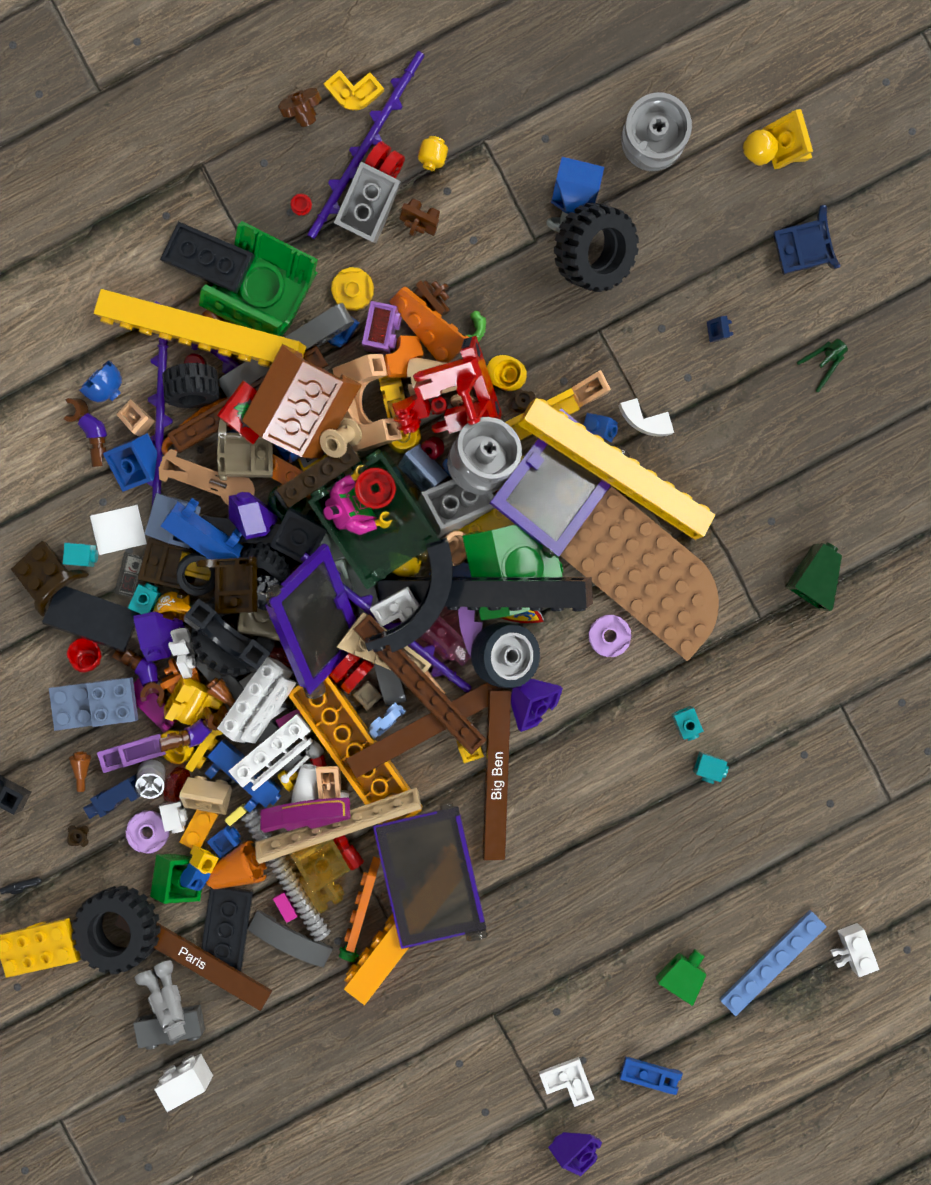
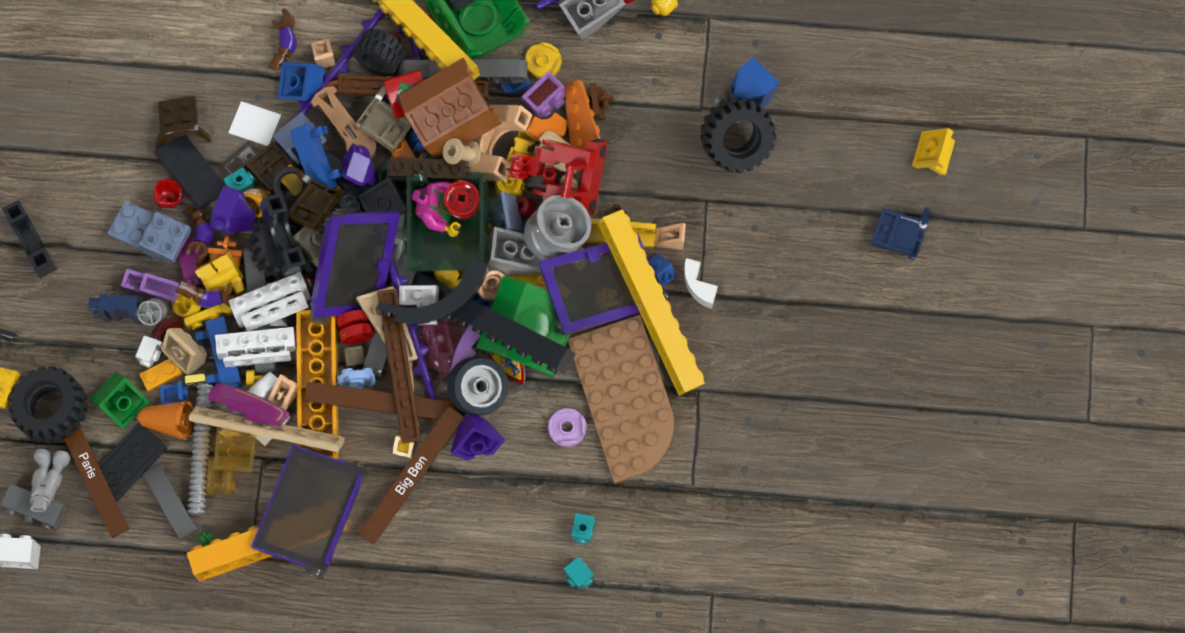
camera: 30 degrees right, 15 degrees down
(73, 840) = (62, 322): dark brown plate -> none
(80, 554) = (215, 121): teal brick -> none
(80, 764) = (106, 272): dark orange cone -> none
(103, 383) = (316, 14): blue cylinder -> none
(138, 840) = (117, 342): lavender tile -> none
(184, 650) = (244, 229): white plate -> none
(198, 869) = (140, 399): leg -> none
(220, 691) = (248, 277): dark orange cone -> none
(285, 906) = (183, 474): dark pink piece -> none
(313, 751) = (285, 369): hinge -> none
(348, 852) = (260, 462): red bar -> none
(362, 900) = (242, 508): orange wing -> none
(419, 220) = (623, 42): reddish brown hips -> none
(480, 325) = (619, 142): bright green piece -> none
(507, 372) = (616, 187): yellow hat -> none
(656, 131) = (837, 84): light grey piece -> none
(719, 329) = (795, 253): dark blue tile -> none
(760, 147) = (910, 142): yellow hair -> none
(817, 576) = (752, 476): dark green slope -> none
(833, 352) = (873, 321): dark green plant -> none

